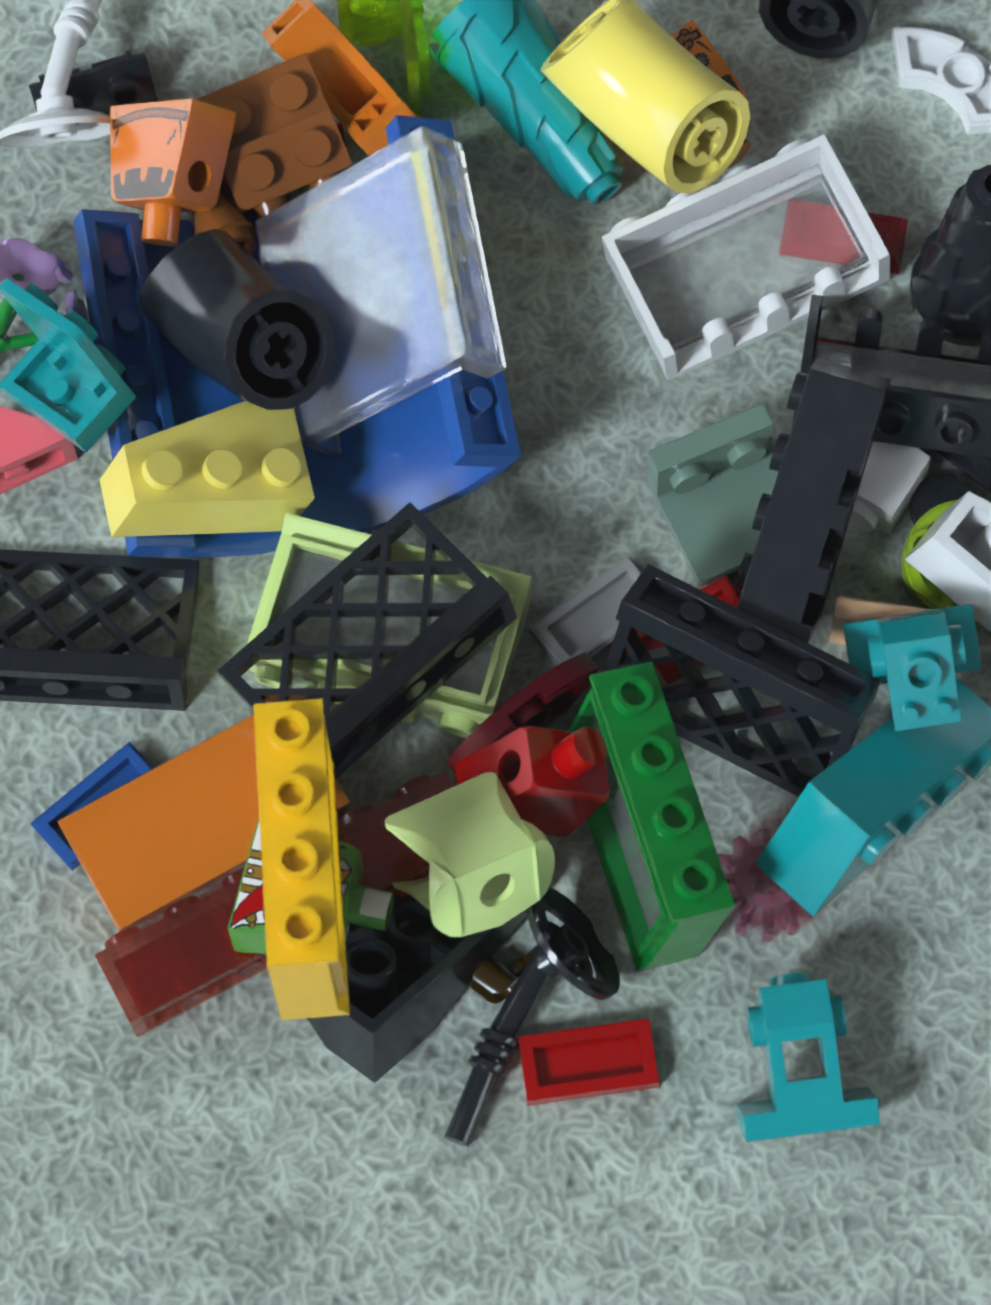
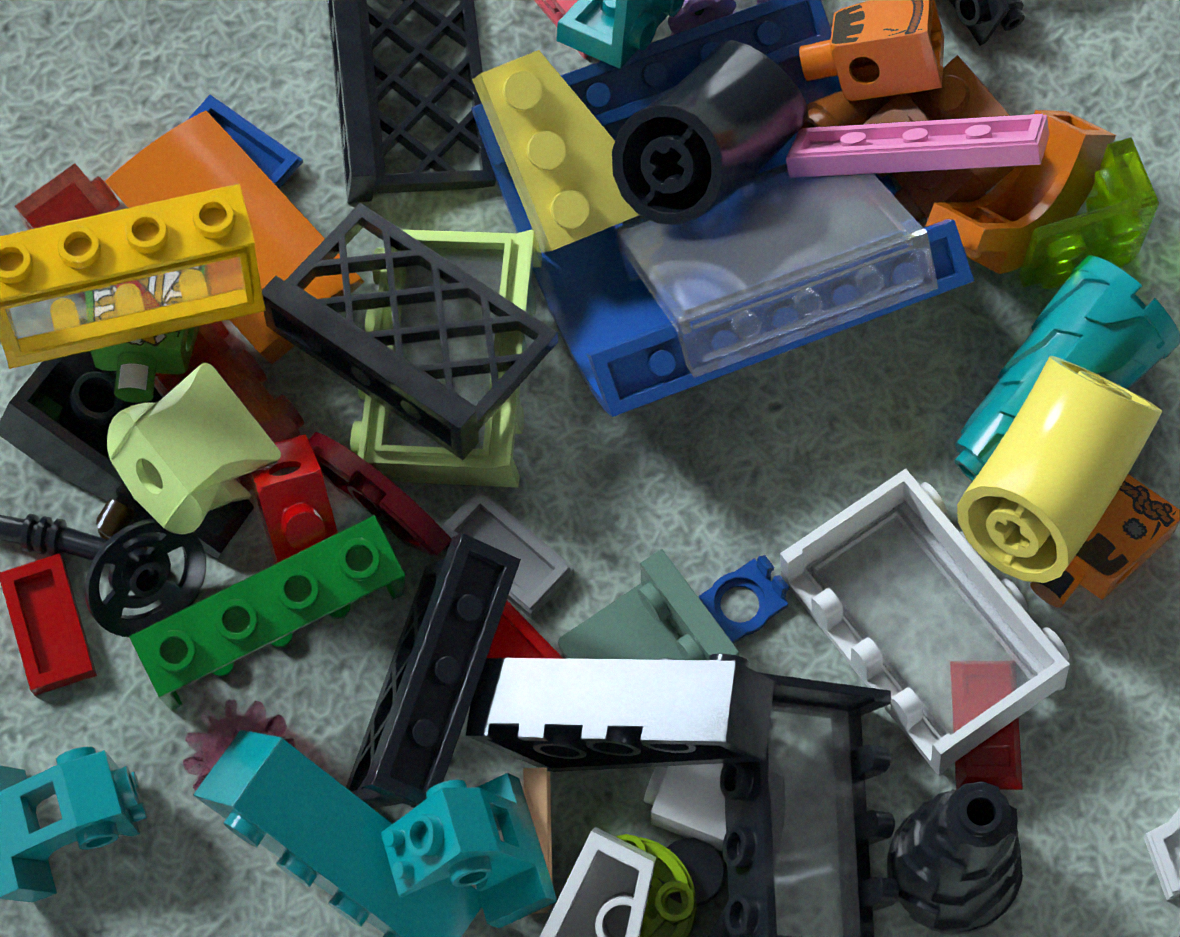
camera: 80 degrees right, 0 degrees up
(297, 141) = (919, 146): none -> bright pink tile
(685, 392) = (756, 577): none -> blue piece

